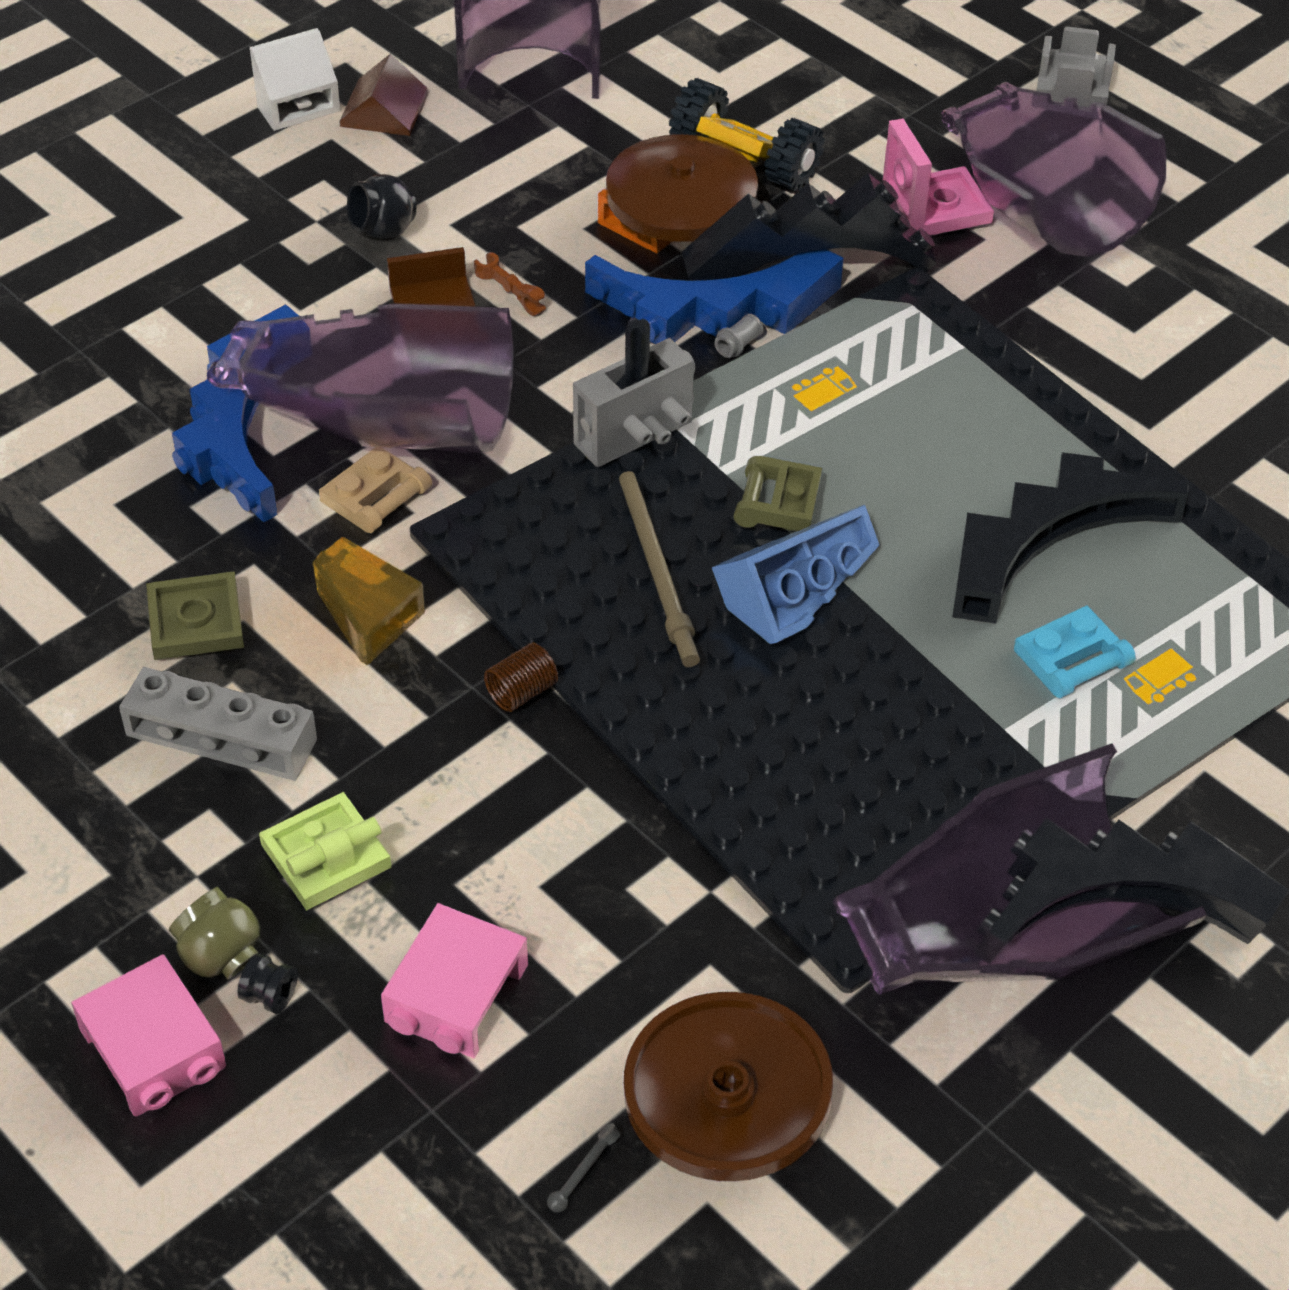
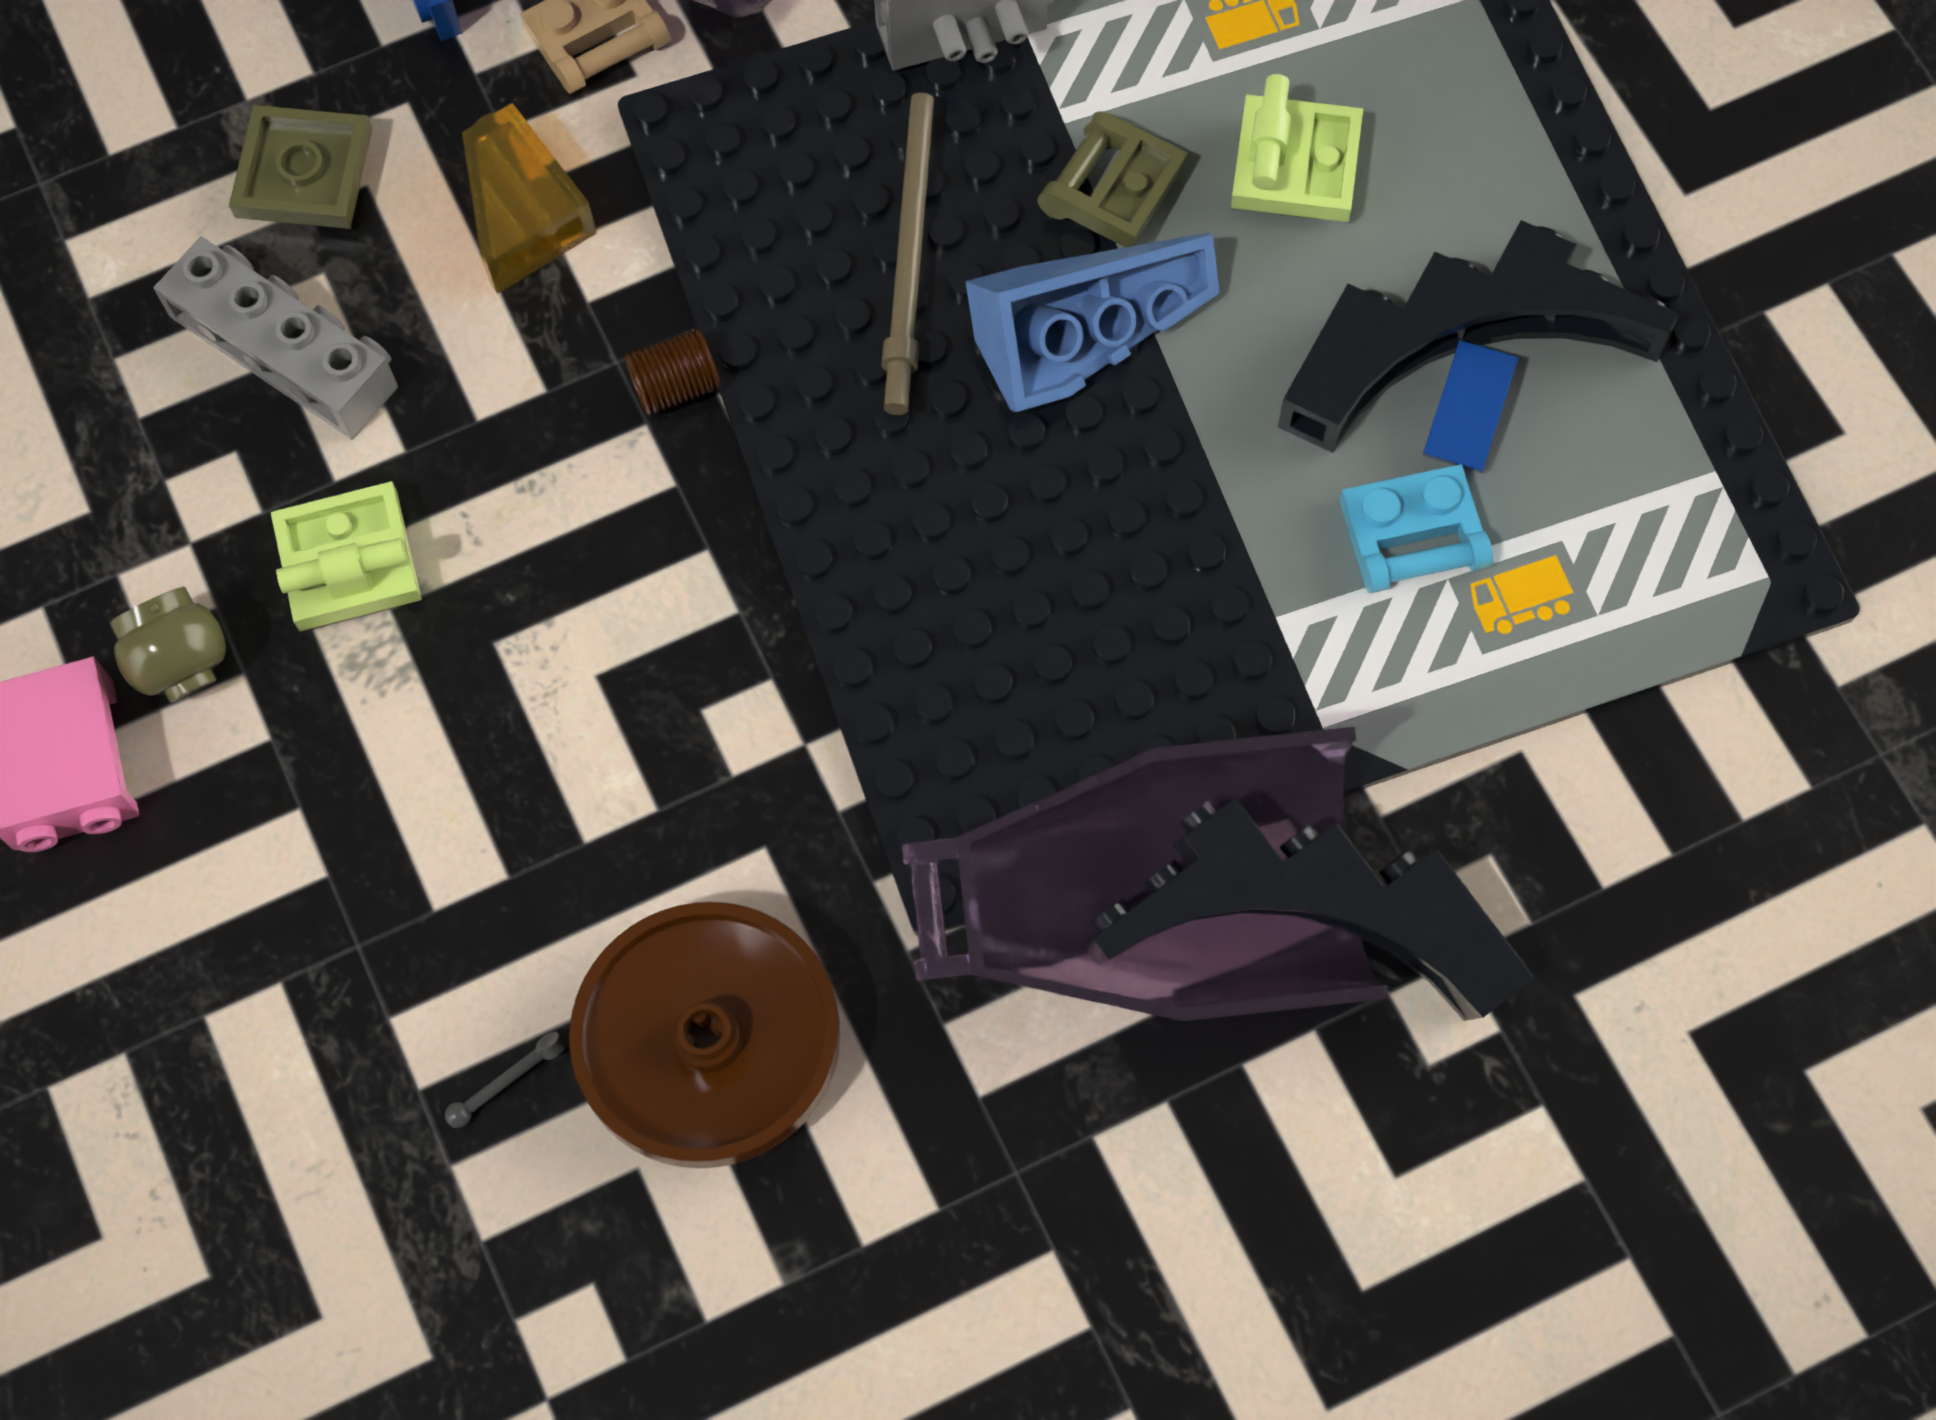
camera: 20 degrees right, 20 degrees up
(267, 983) = (213, 724): black wheel -> none
(452, 979) = (430, 783): bright pink panel -> none
(893, 454) = (1296, 155): none -> yellowish green plate
(1076, 571) = (1470, 406): none -> blue slope

